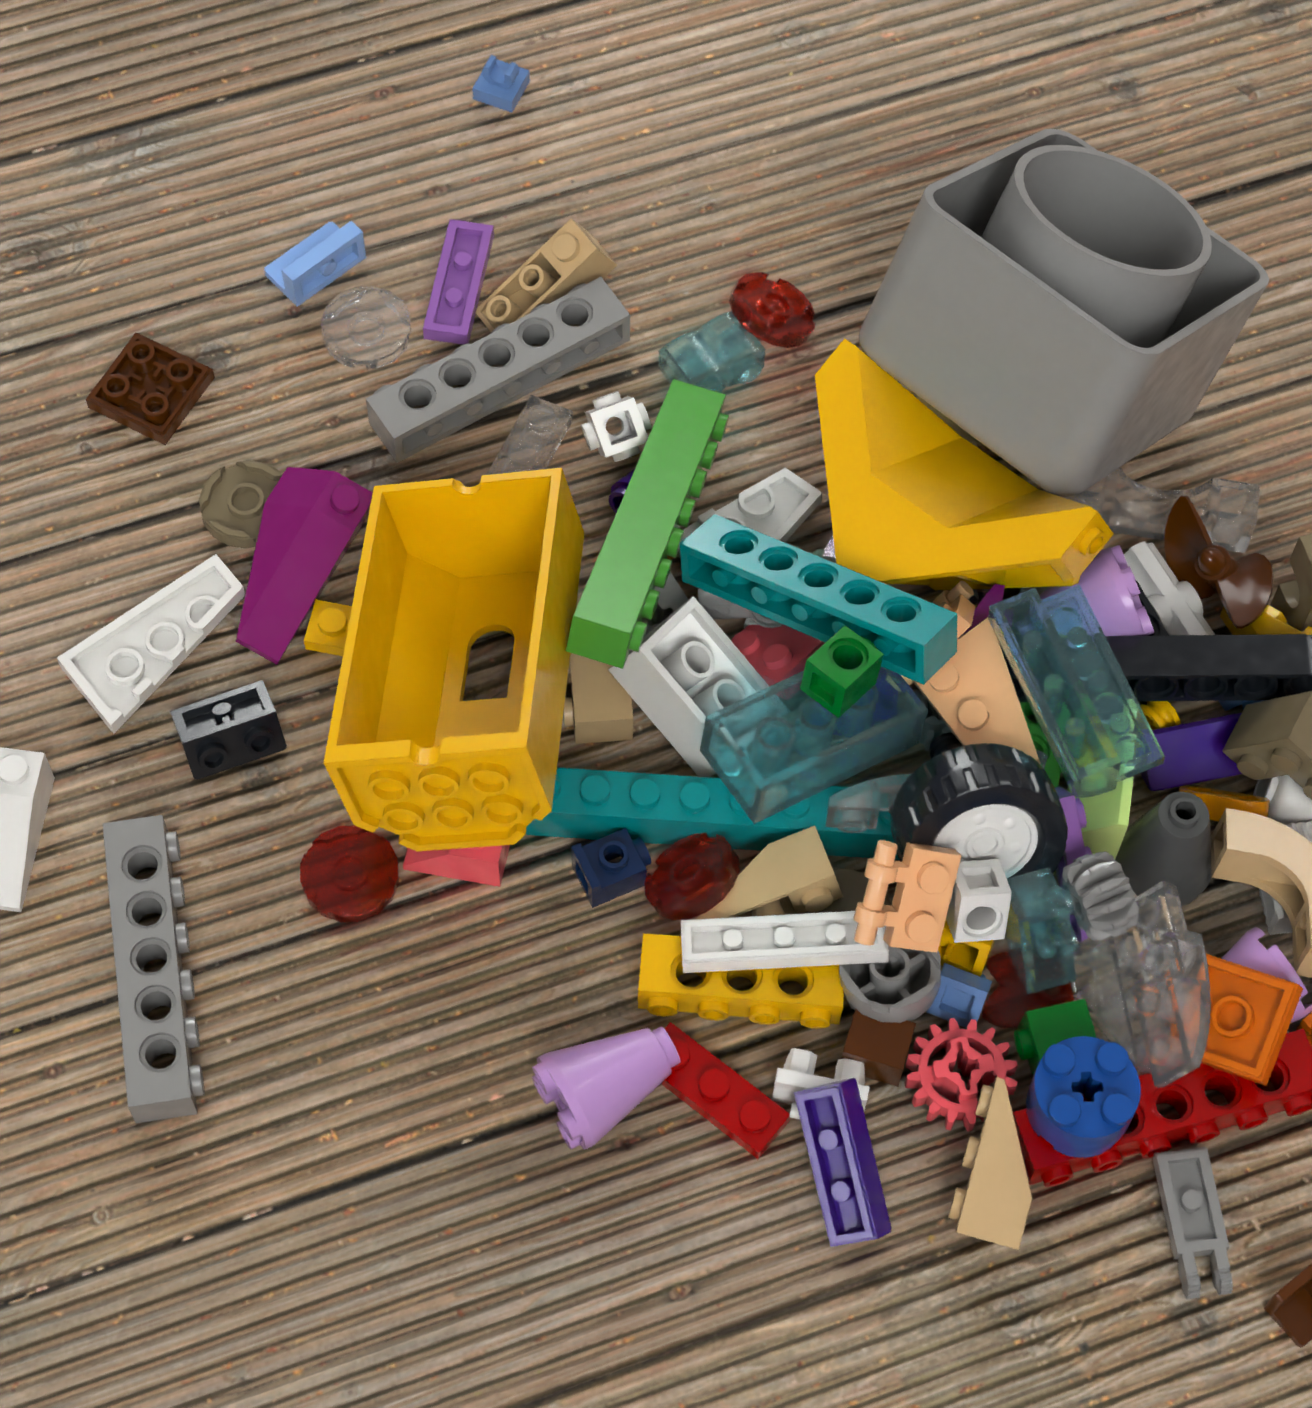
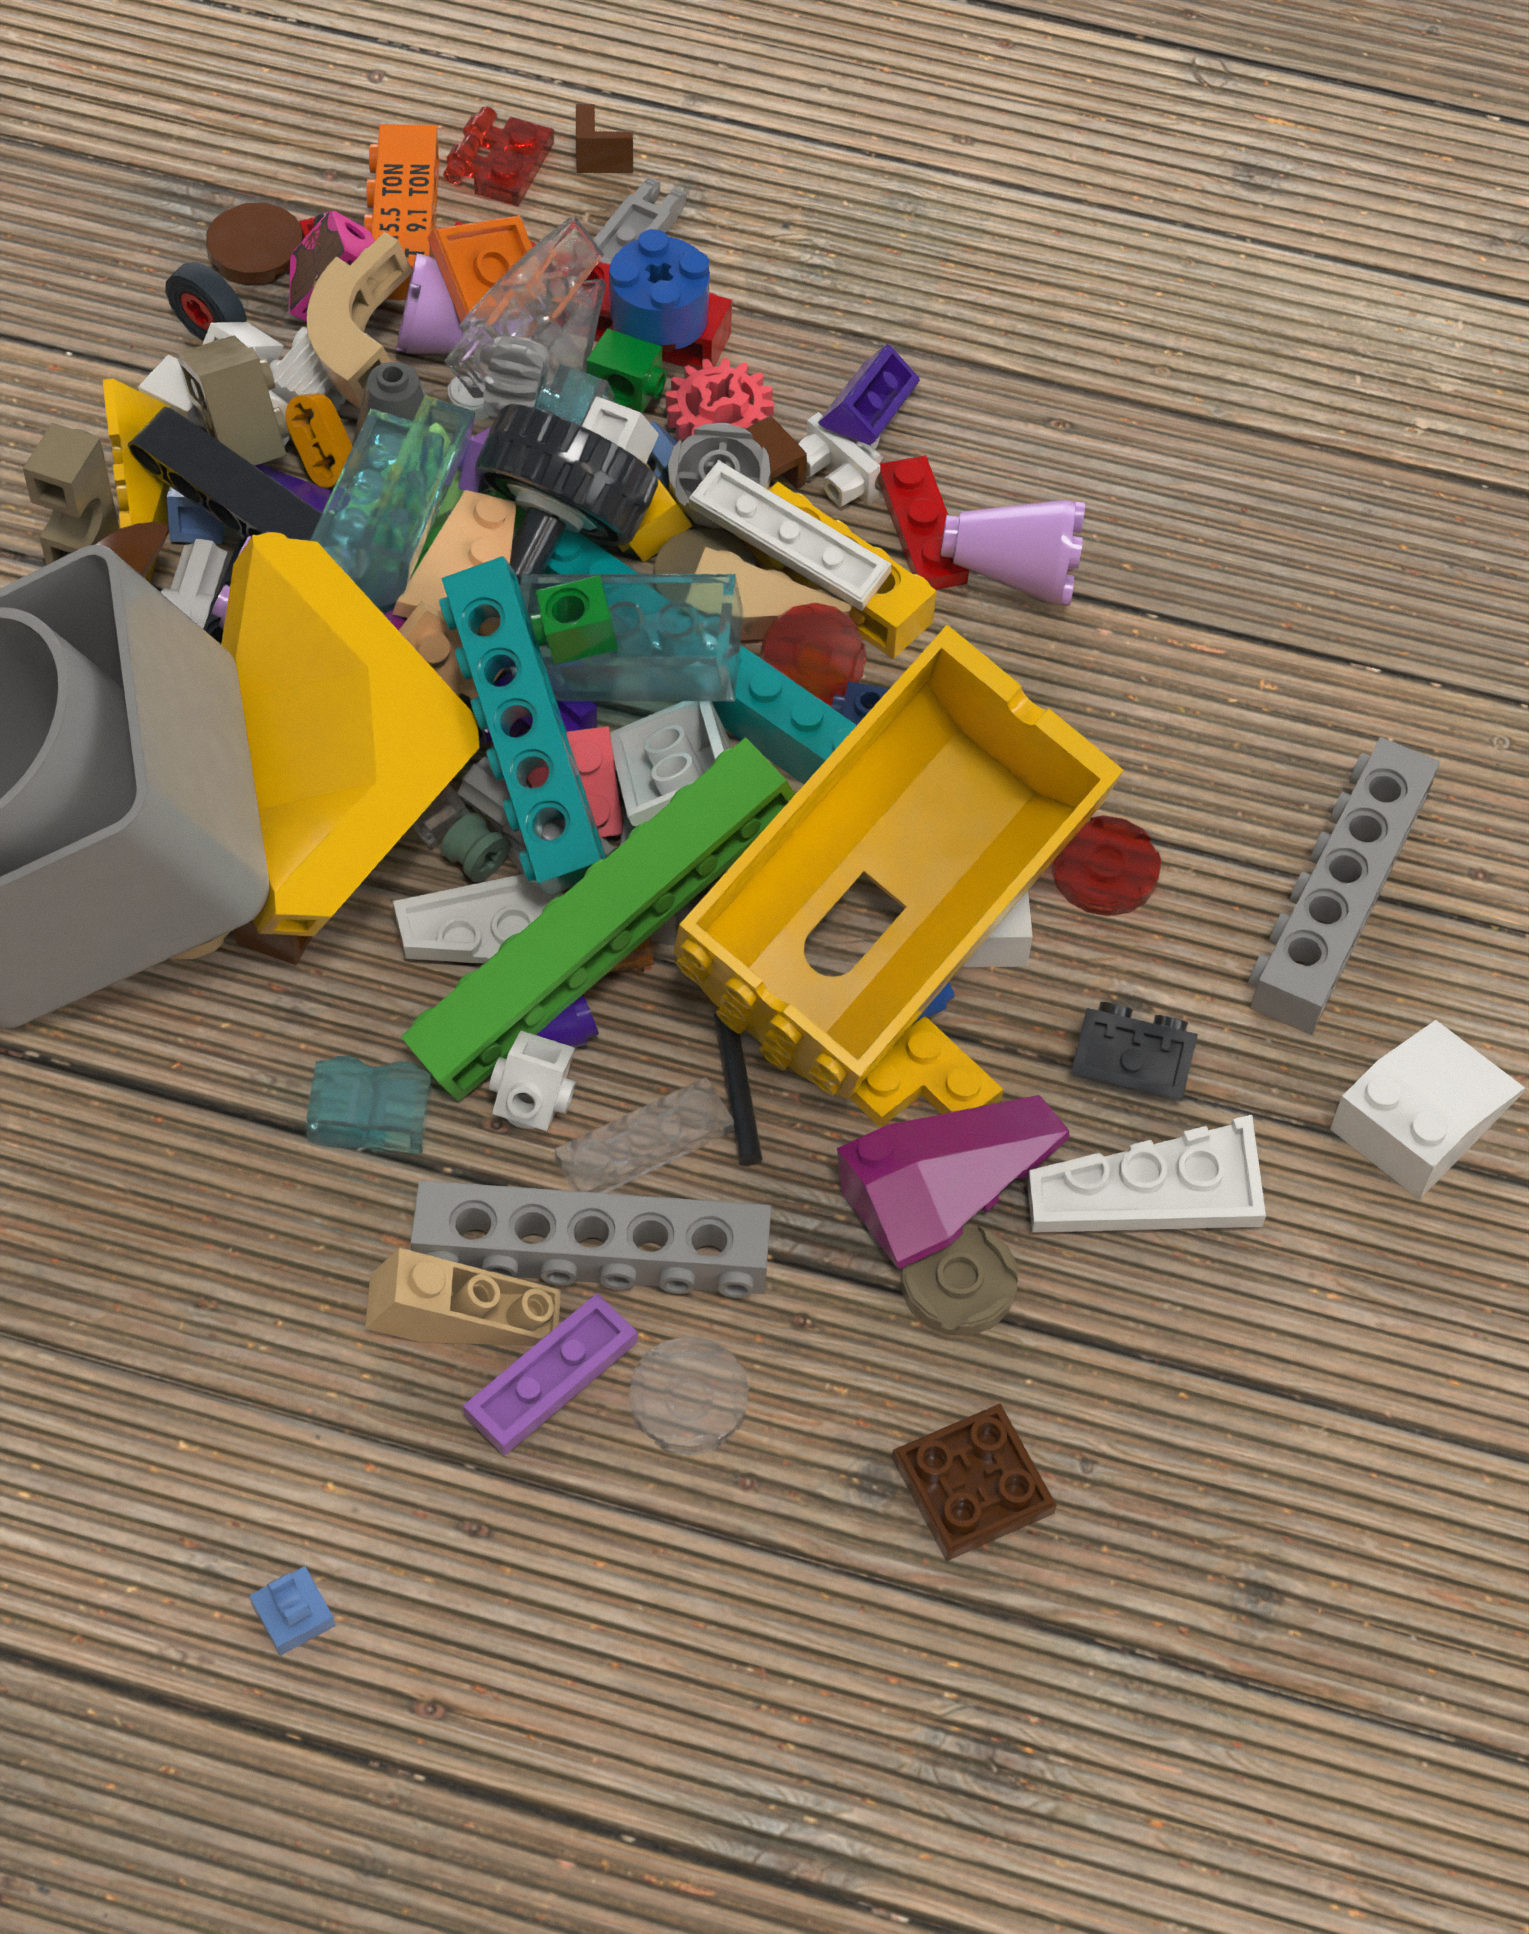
camera: 145 degrees left, 5 degrees down
(317, 261) = (683, 1513): light blue panel -> none
(772, 310) = (263, 1110): clear red tile -> none
(859, 805) = (600, 553): clear slope -> none
(919, 900) = (681, 451): light nougat plate -> none
(998, 1188) = (767, 315): tan slope -> none

